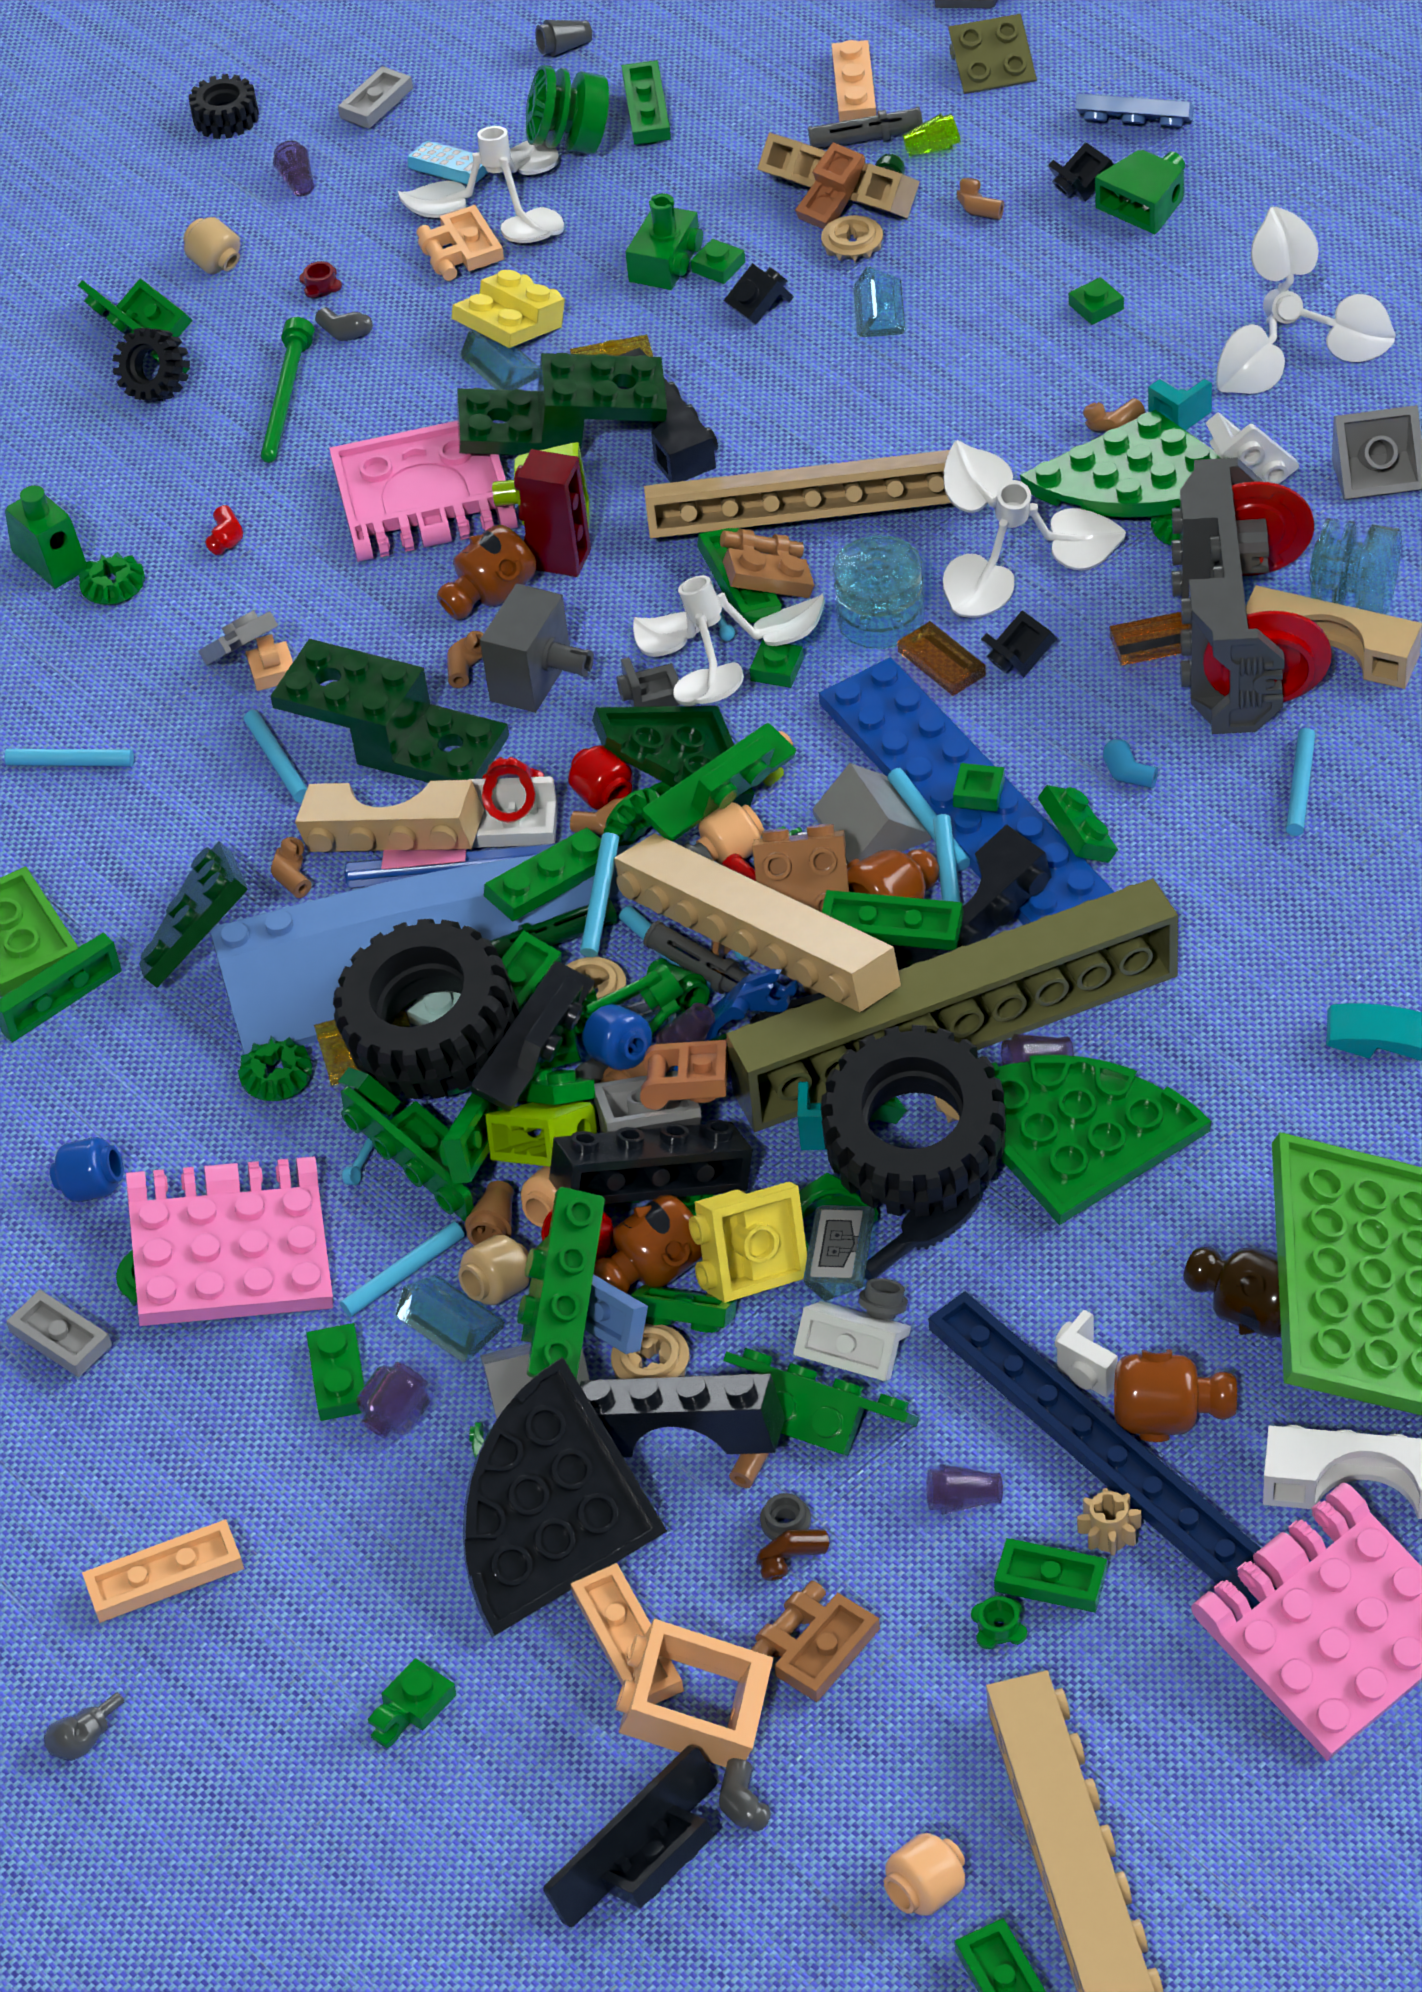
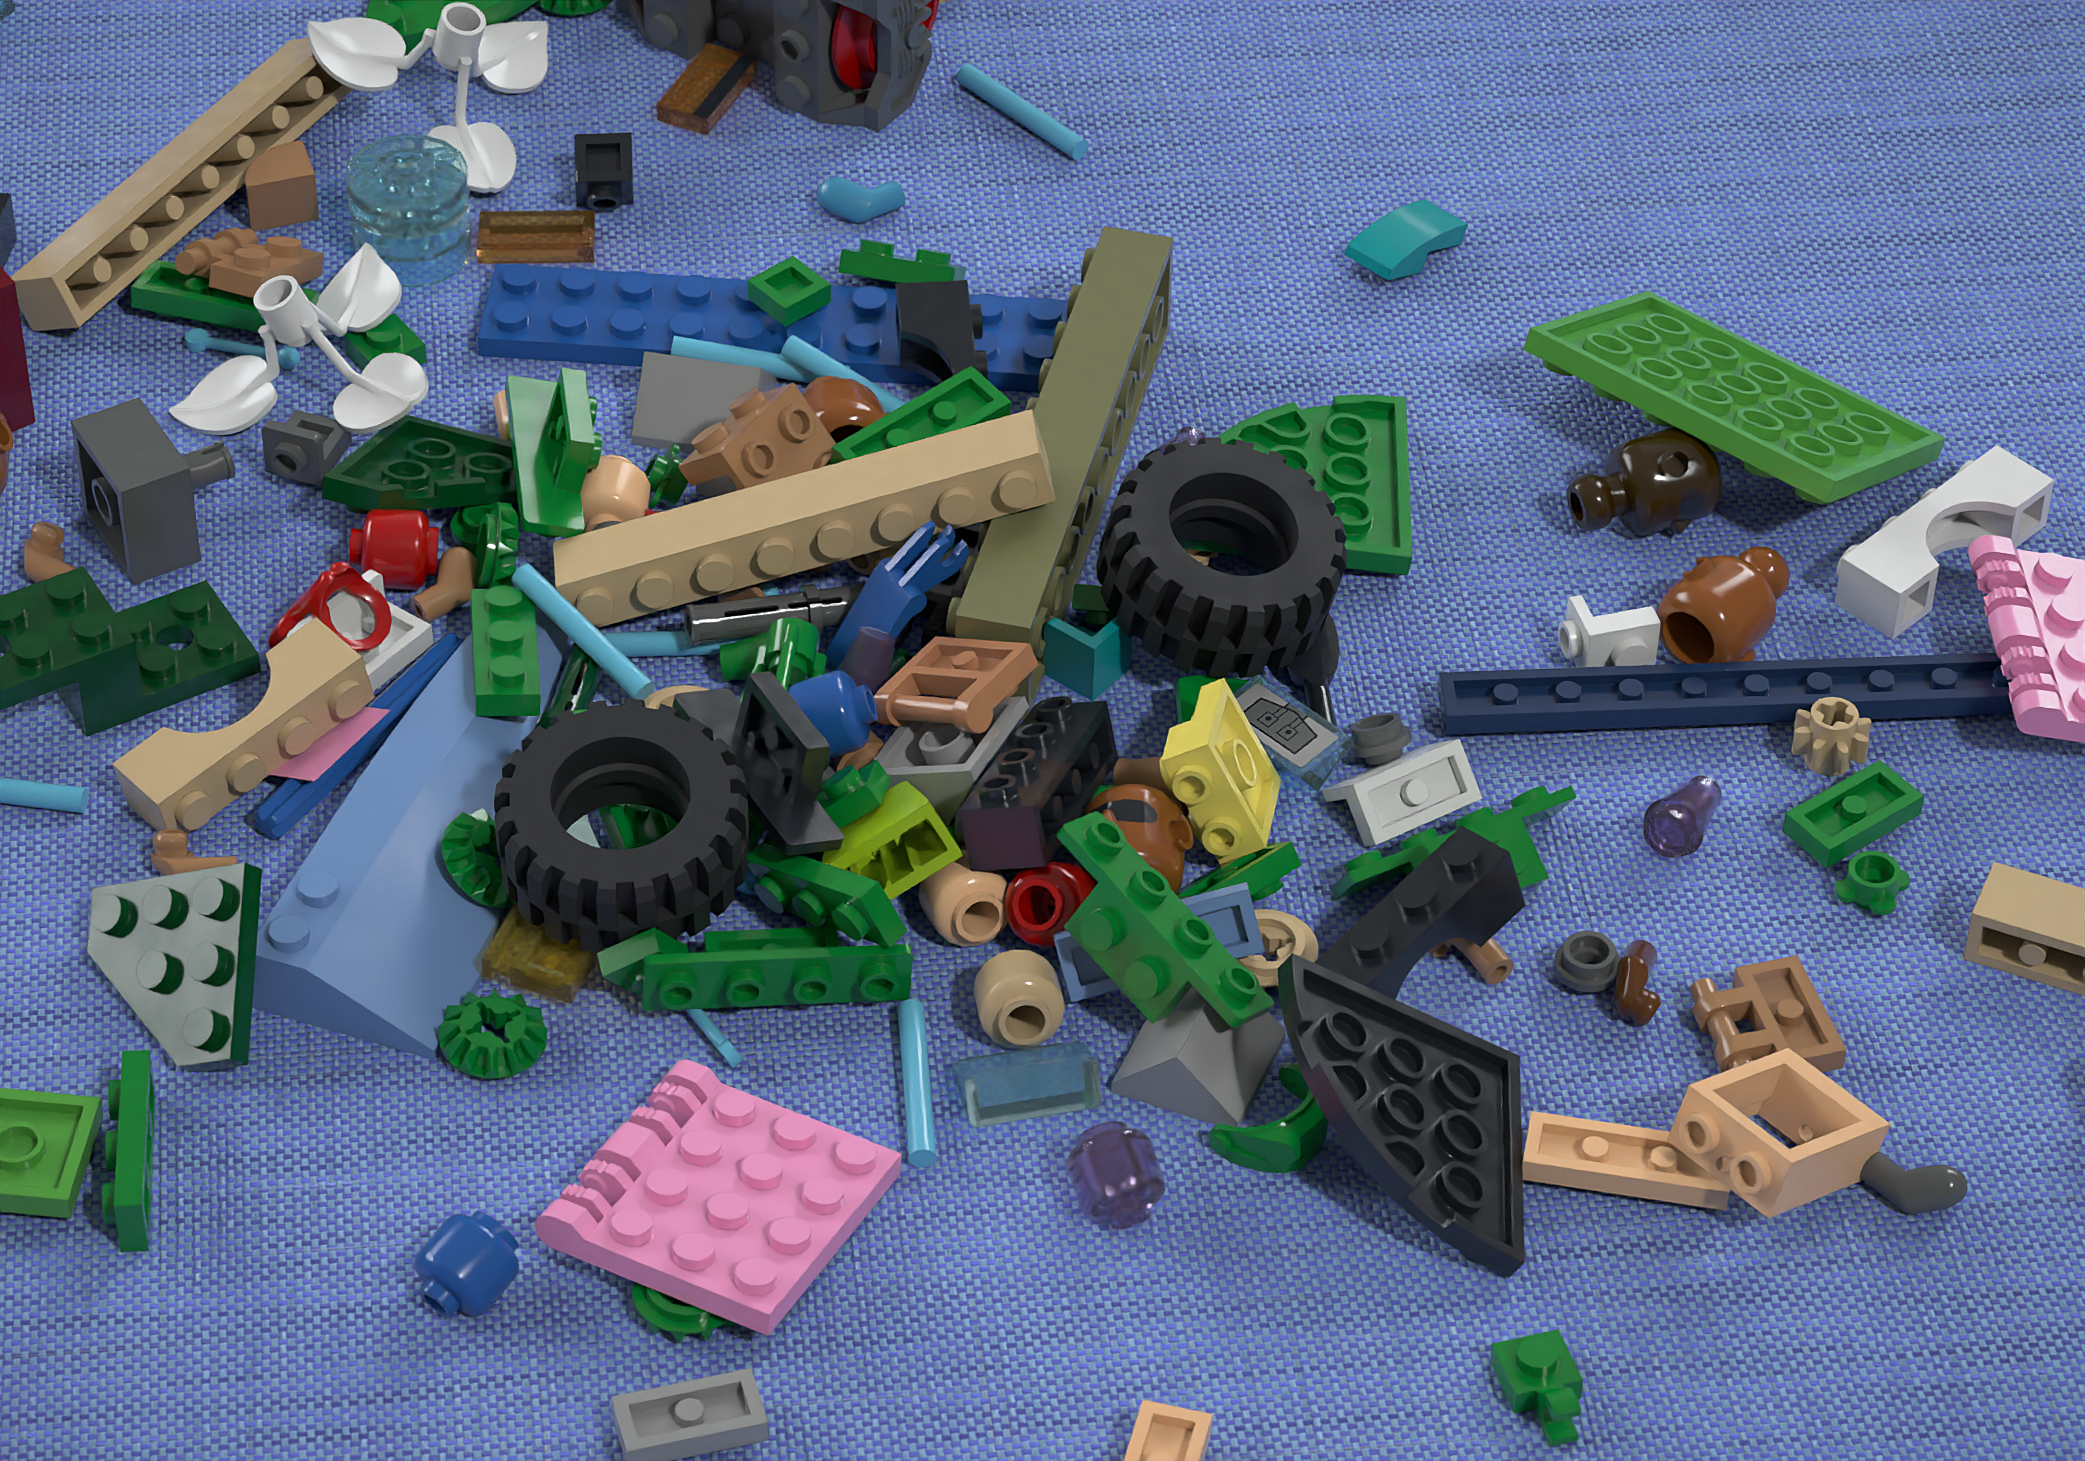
camera: 60 degrees left, 5 degrees down
(336, 1370) = (1006, 1211): green plate -> none
(491, 1214) = (941, 969): medium nougat cone -> none
(640, 1844) = (1928, 1283): black bracket -> none
(849, 523) = (281, 187): none -> medium nougat brick

